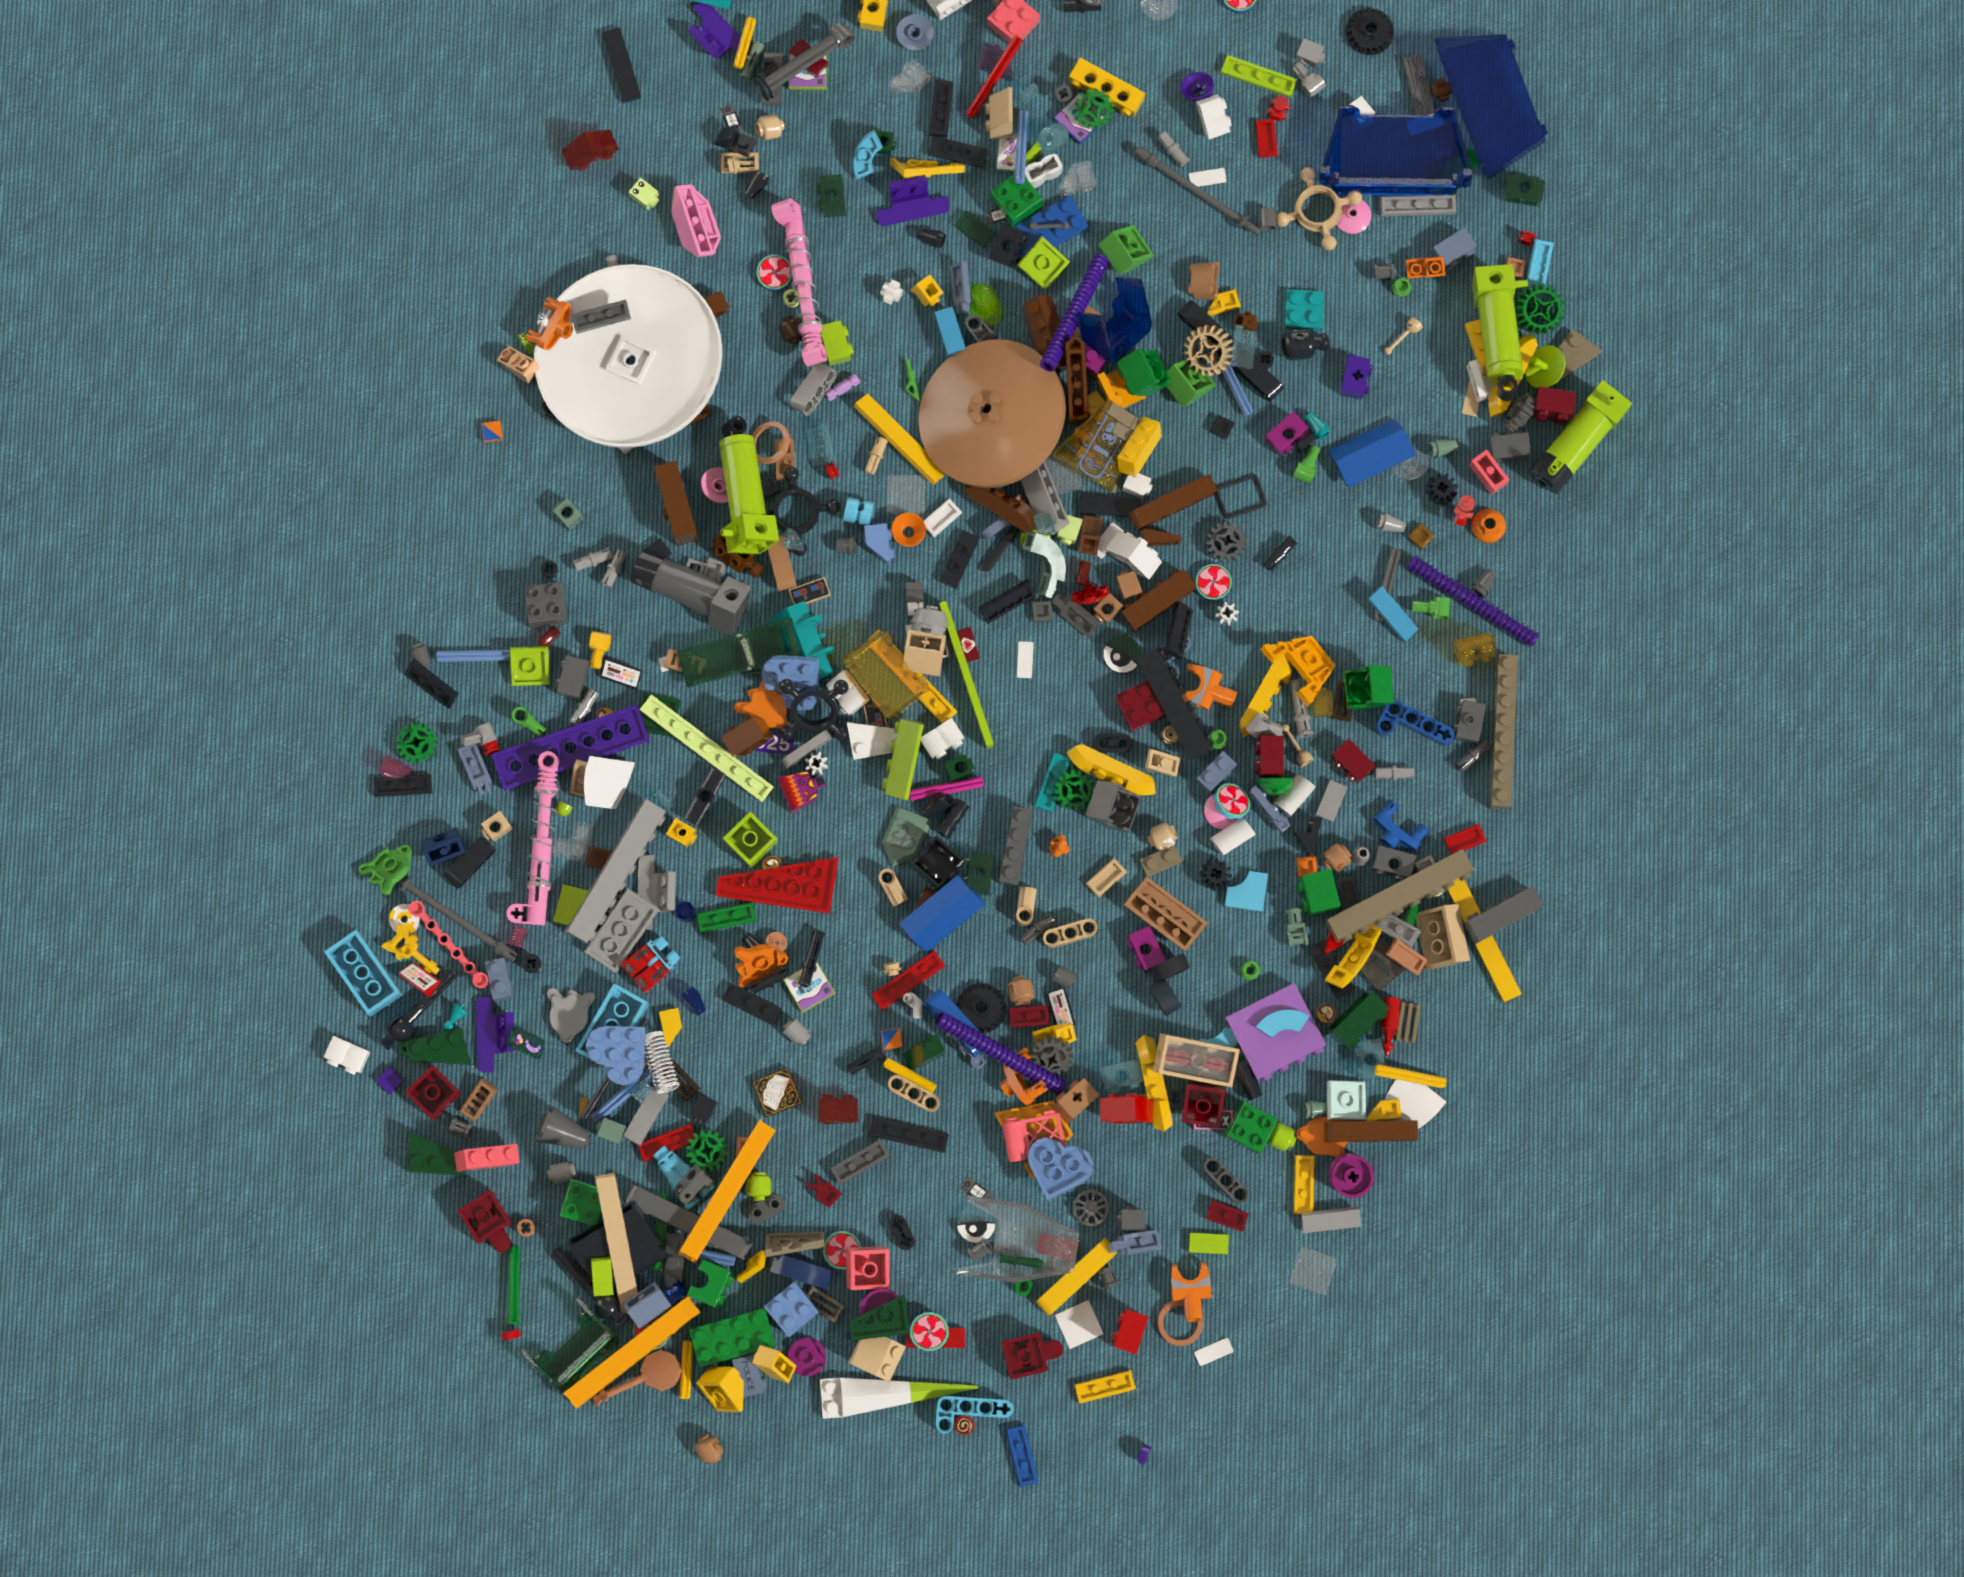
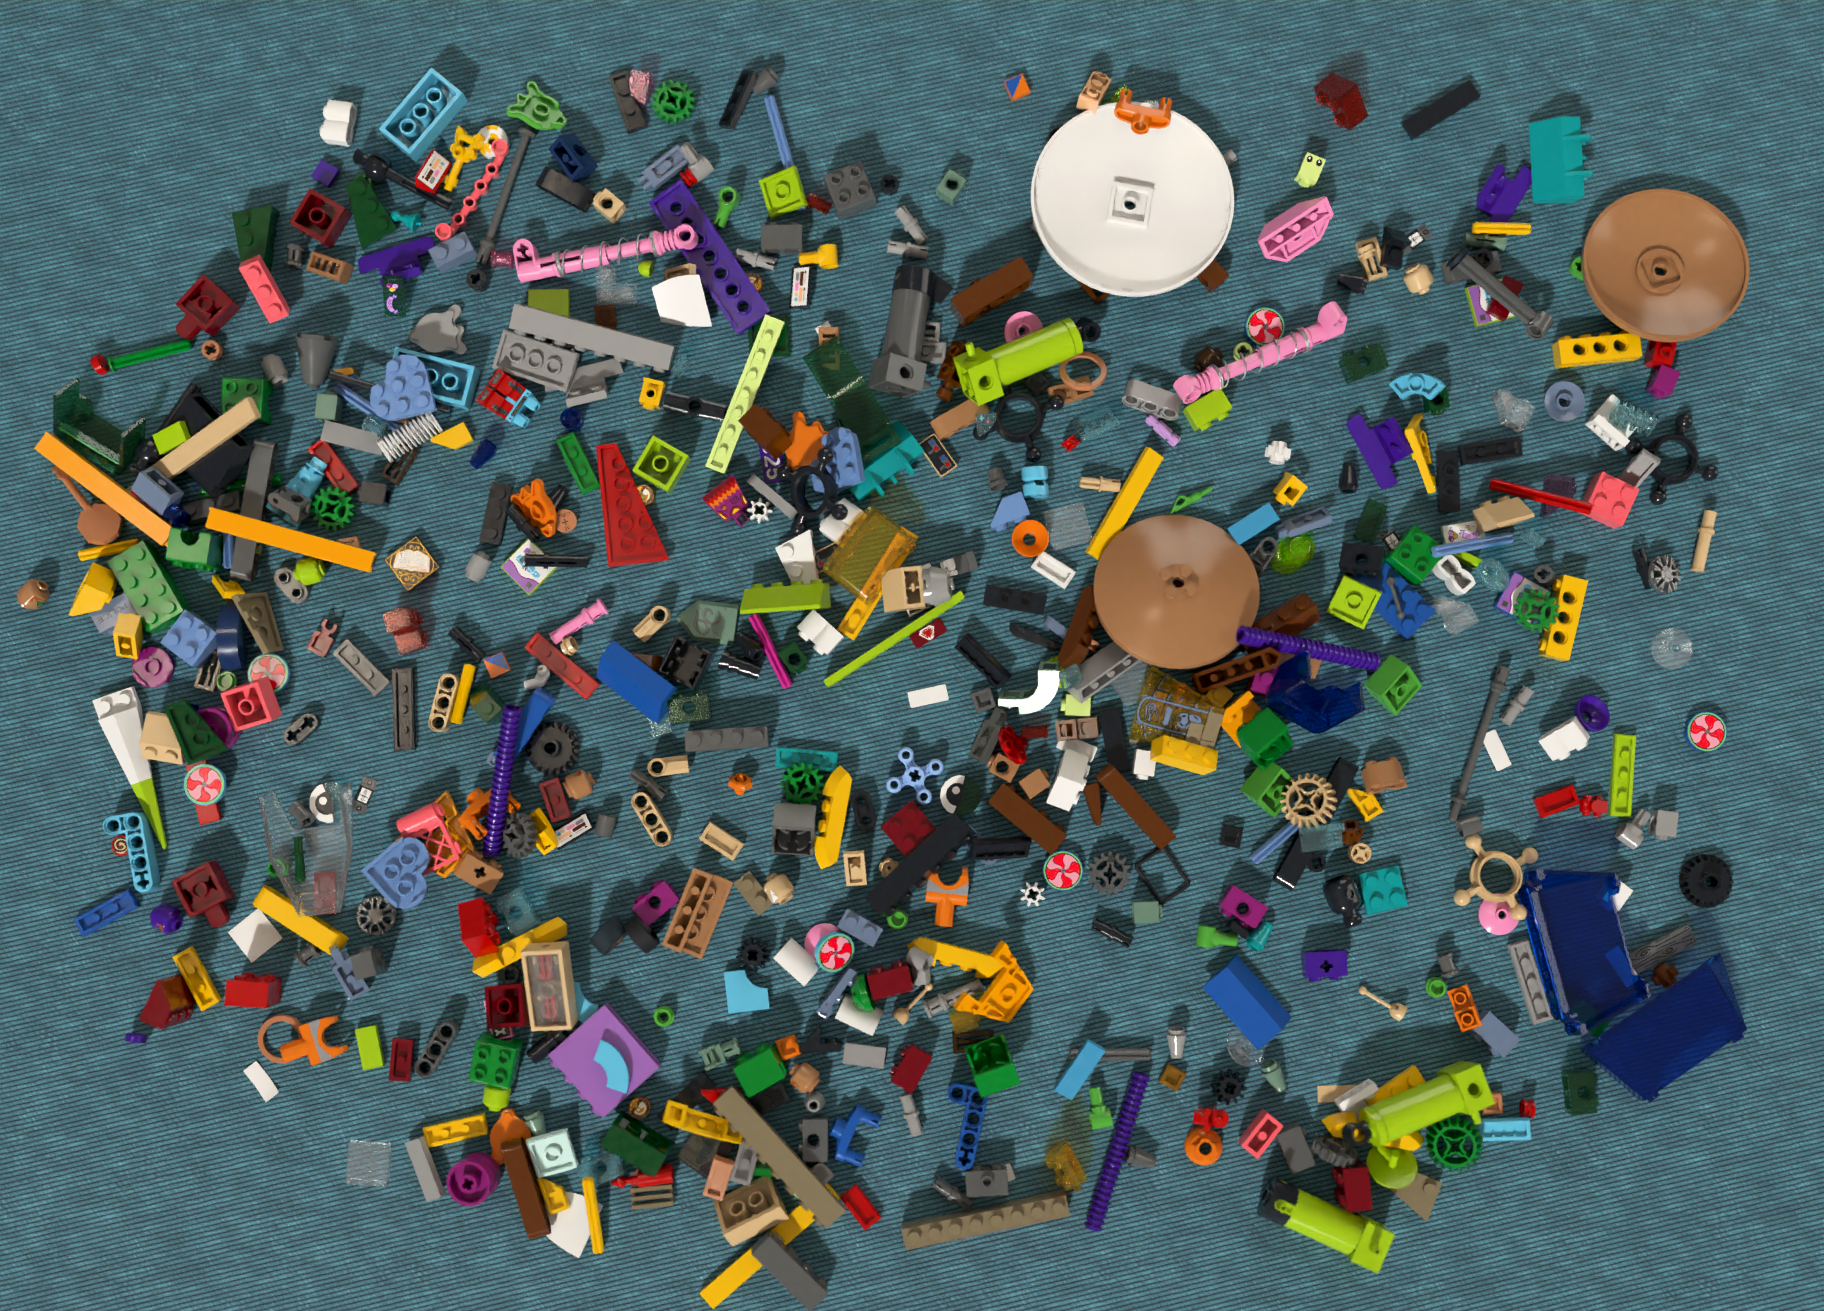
camera: 75 degrees right, 5 degrees up
(601, 316) = (1165, 158): dark grey plate -> none
(838, 1291) = (226, 680): none -> bright green plate
(869, 945) = (586, 617): none -> bright pink pin
(1042, 1398) = (166, 918): none -> dark purple head
(1095, 696) = (906, 779): none -> light blue gear
(1122, 1408) = (168, 1003): none -> dark red slope
(1266, 316) = (1361, 856): none -> tan wheel
(1269, 518) = (1146, 911): none -> sand green brick

